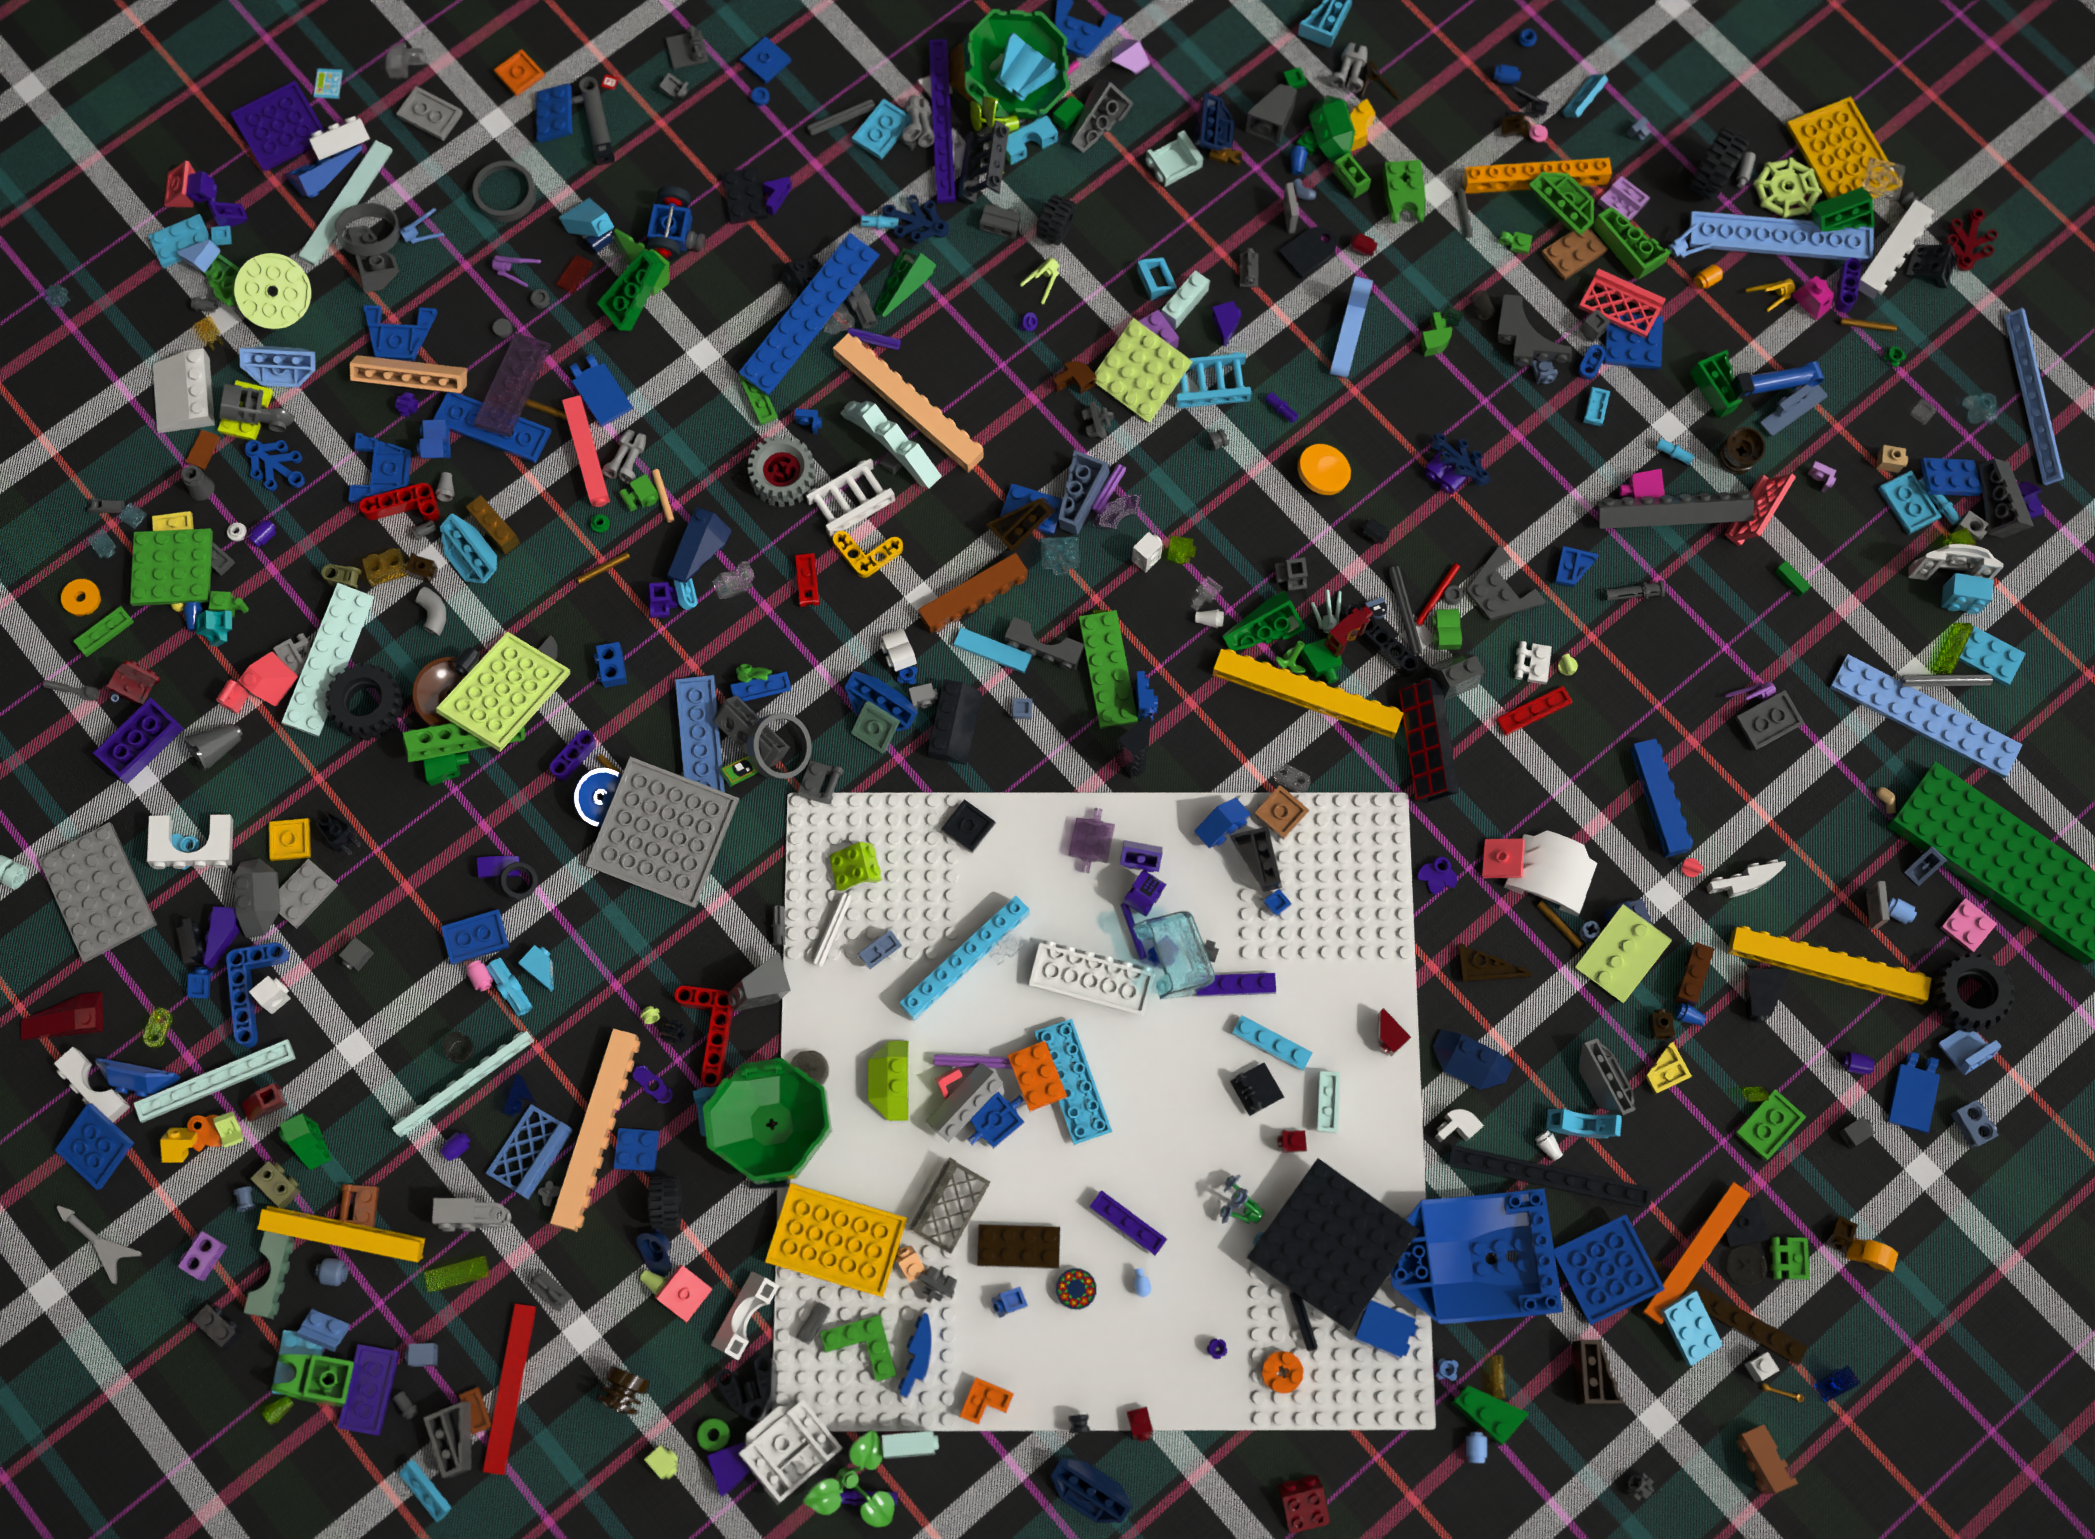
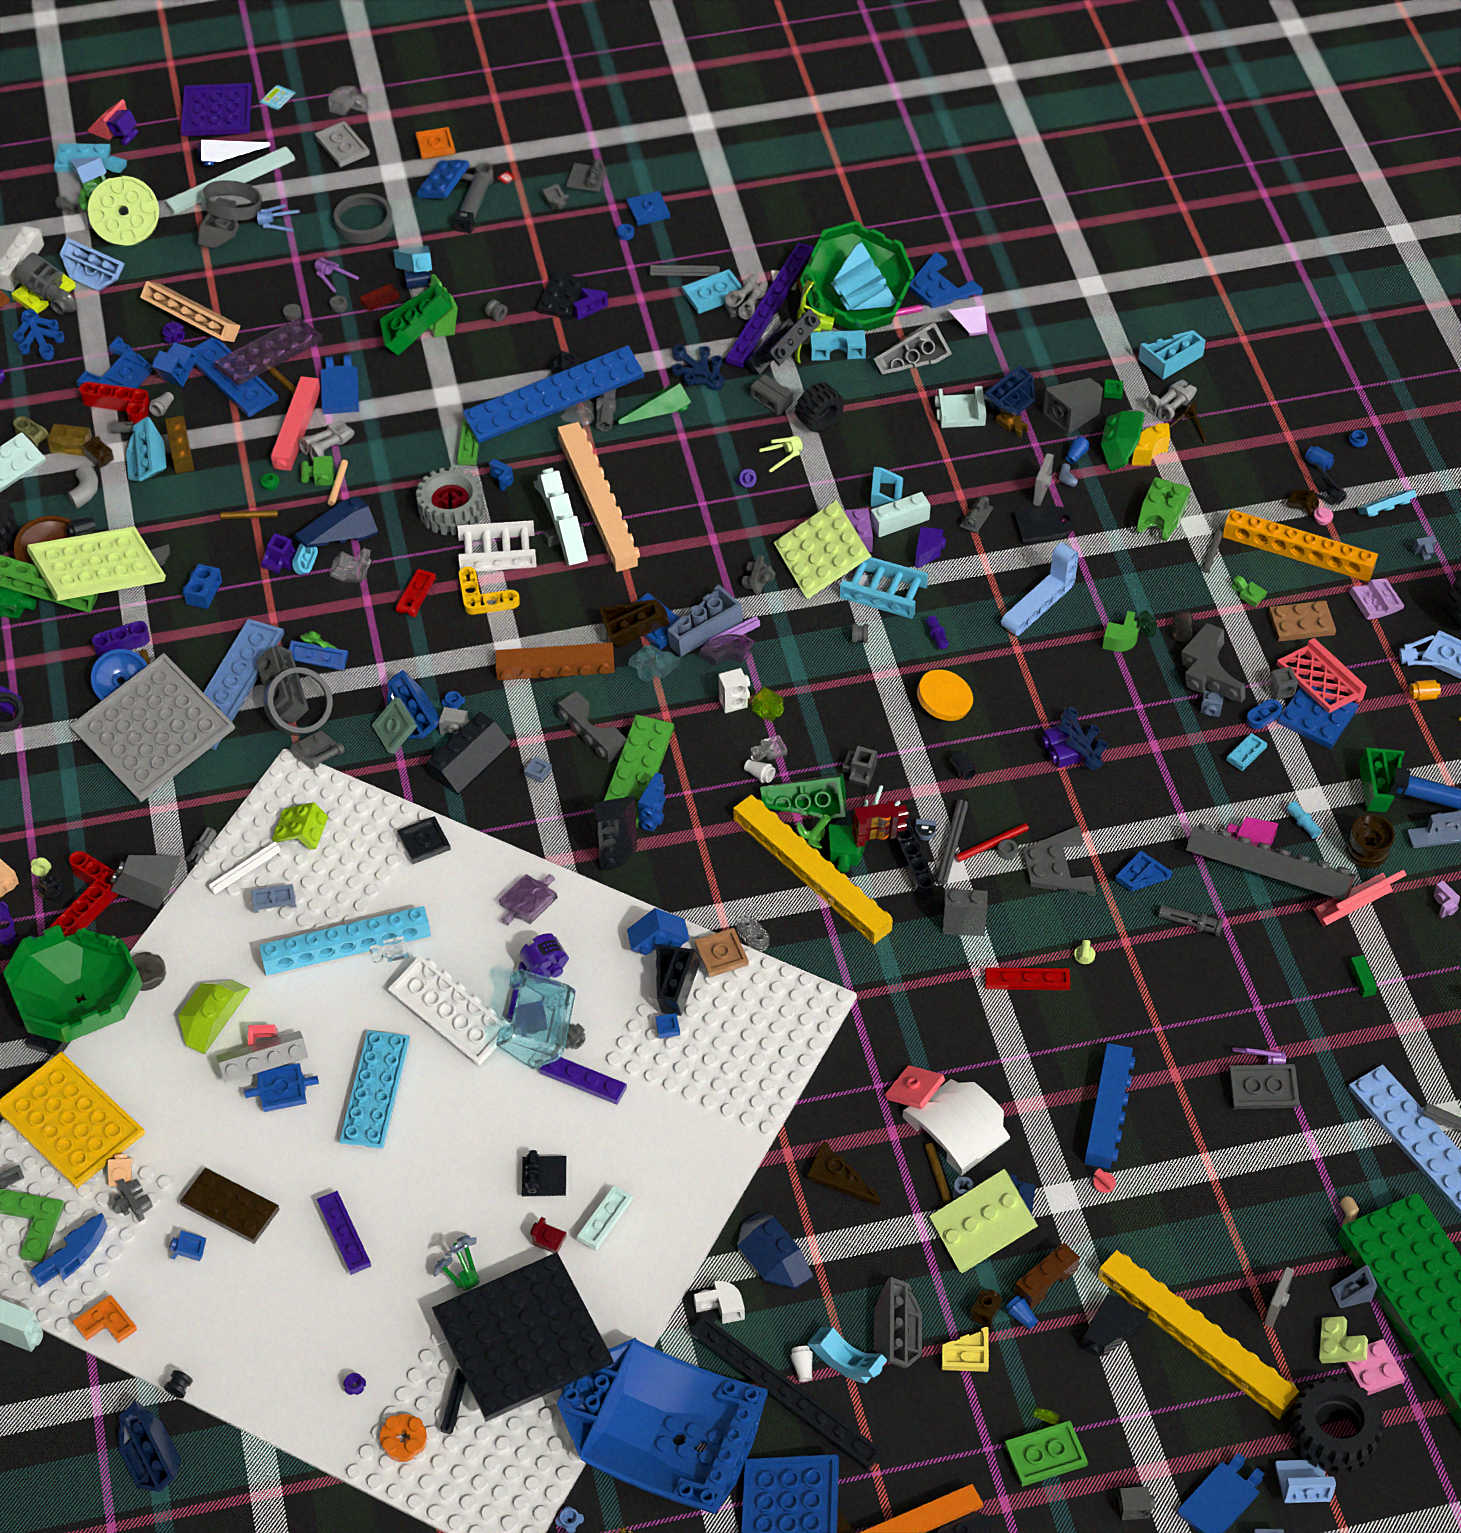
camera: 30 degrees right, 20 degrees down
(208, 331) = (56, 225): clear yellow plate -> none
(228, 213) = (130, 150): dark purple slope -> none
(338, 137) = (256, 130): white brick -> none
(397, 340) = (202, 287): blue wing -> none
(670, 222) = (482, 285): brick -> none
(738, 771) = (250, 710): tile -> none
(876, 339) = (602, 439): dark purple axle -> none
(879, 221) = (664, 355): medium azure pin -> none
(898, 650) = (456, 676): white brick -> none
(933, 1196) = (183, 1121): clear smoke fence -> none
(971, 1061) = (309, 1037): medium lavender axle -> none
(992, 650) = (543, 714): medium azure tile -> none
(1037, 1076) = (343, 1065): orange plate -> none
(1068, 112) = (886, 337): green piece -> none
(1075, 373) = (761, 532): reddish brown brick -> none
(1076, 1289) = (257, 1267): tile -> none
(1140, 1424) = (236, 1417): dark red bracket -> none
(1141, 856) = (564, 928): dark purple brick -> none
(1142, 1283) = (321, 1291): light blue cylinder -> none
(1272, 1043) = (585, 1144): medium azure plate -> none
(1308, 141) = (1095, 442): green plate -> none
(1351, 175) = (1118, 478): bright green brick -> none
(1363, 244) = (1097, 537): dark red brick -> none
(1385, 1330) = (527, 1446): blue brick -> none
(1390, 1034) = (703, 1187): dark red slope -> none
(1428, 740) = (901, 953): black brick -> none
(1438, 878) = (840, 1077): dark purple plate -> none
(1447, 629) = (982, 871): bright green brick -> none
(1538, 665) = (1056, 942): white plate -> none
(1565, 200) = (1313, 569): bright green wedge -> none
(1629, 243) = (1359, 633): bright green wedge -> none
(1752, 878) = (1164, 1220): white slope -> none
(1858, 1063) = (1174, 1439): dark purple brick -> none
(1901, 910) = (1304, 1318): light blue brick -> none
(1935, 923) = (1336, 1346): none -> yellowish green plate

